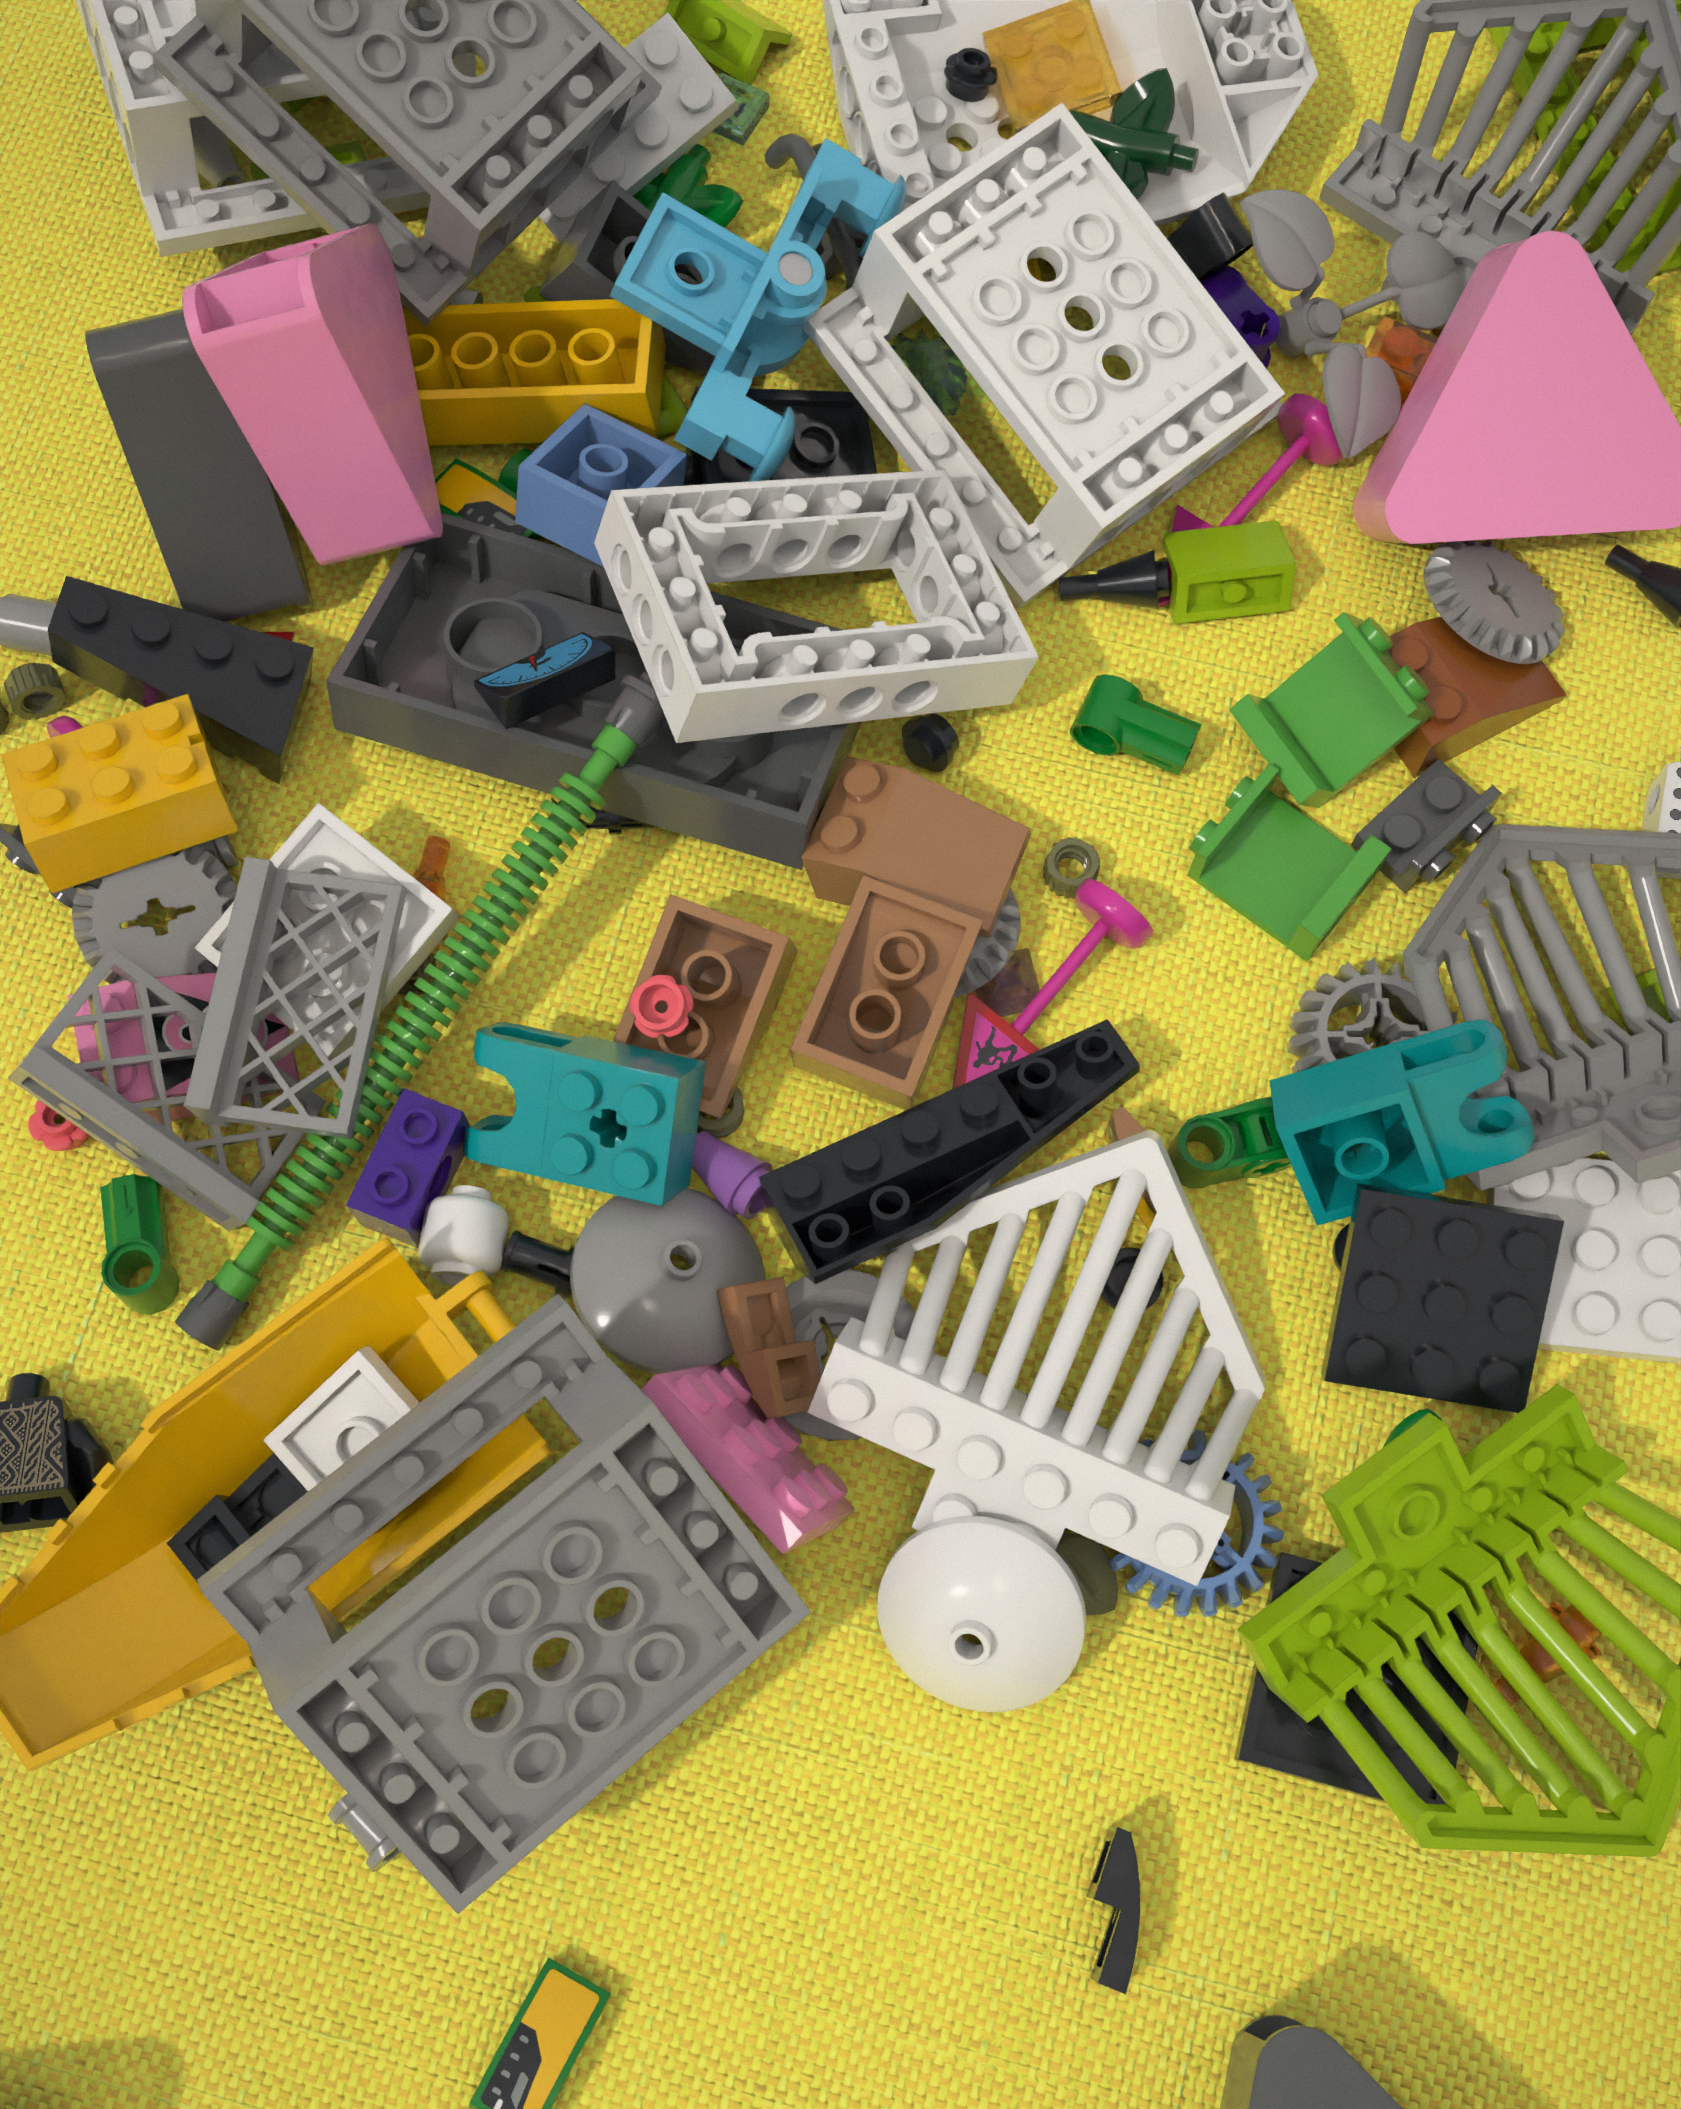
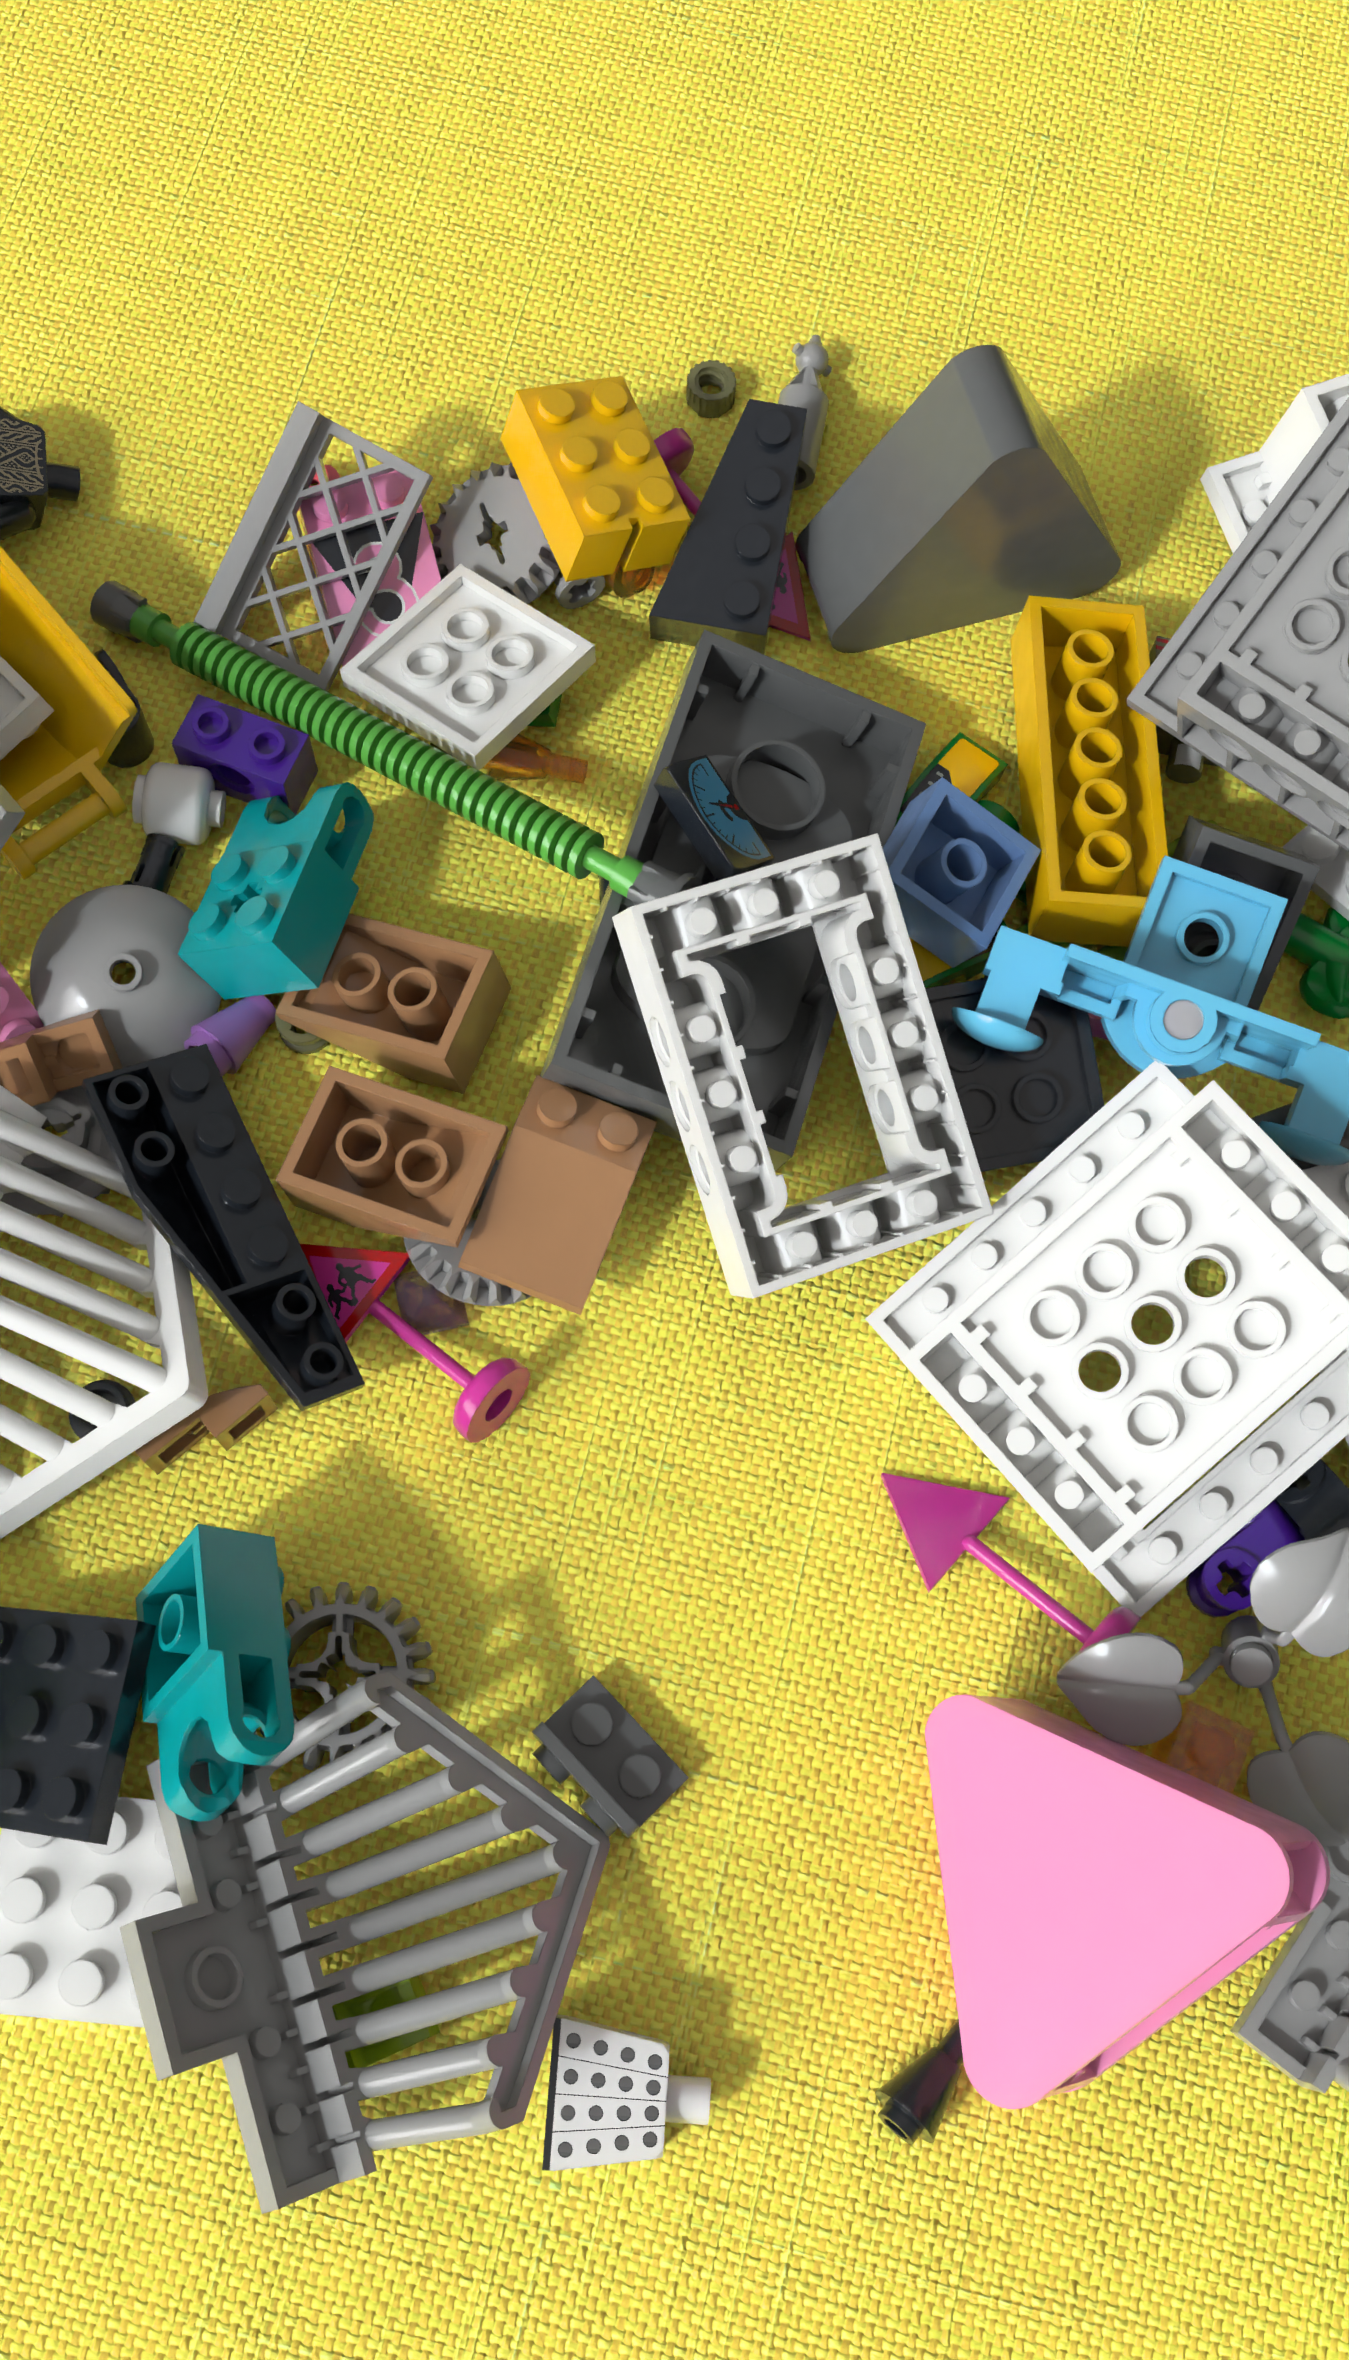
camera: 85 degrees right, 0 degrees up
(35, 690) = (724, 422): olive axle -> none
(137, 1239) = (184, 548): green piece -> none
(240, 1003) = (393, 591): light grey fence -> none
(324, 388) = (1011, 575): bright pink brick -> none
(649, 994) = (369, 934): coral plate -> none
(930, 742) = (689, 1223): black plate -> none
(1074, 849) = (557, 1347): olive axle -> none
(1120, 720) = (724, 1421): green piece -> none
(1129, 582) = (899, 1440): black cone -> none
(1229, 571) = (918, 1543): lime panel -> none
(1241, 1143) = (242, 1513): green piece -> none
(1281, 866) = (559, 1592): bright green panel -> none
(1336, 713) = (722, 1641): bright green panel -> none
(1469, 693) = (789, 1812): dark orange slope -> none
(1493, 601) = (848, 1837): light grey gear -> none

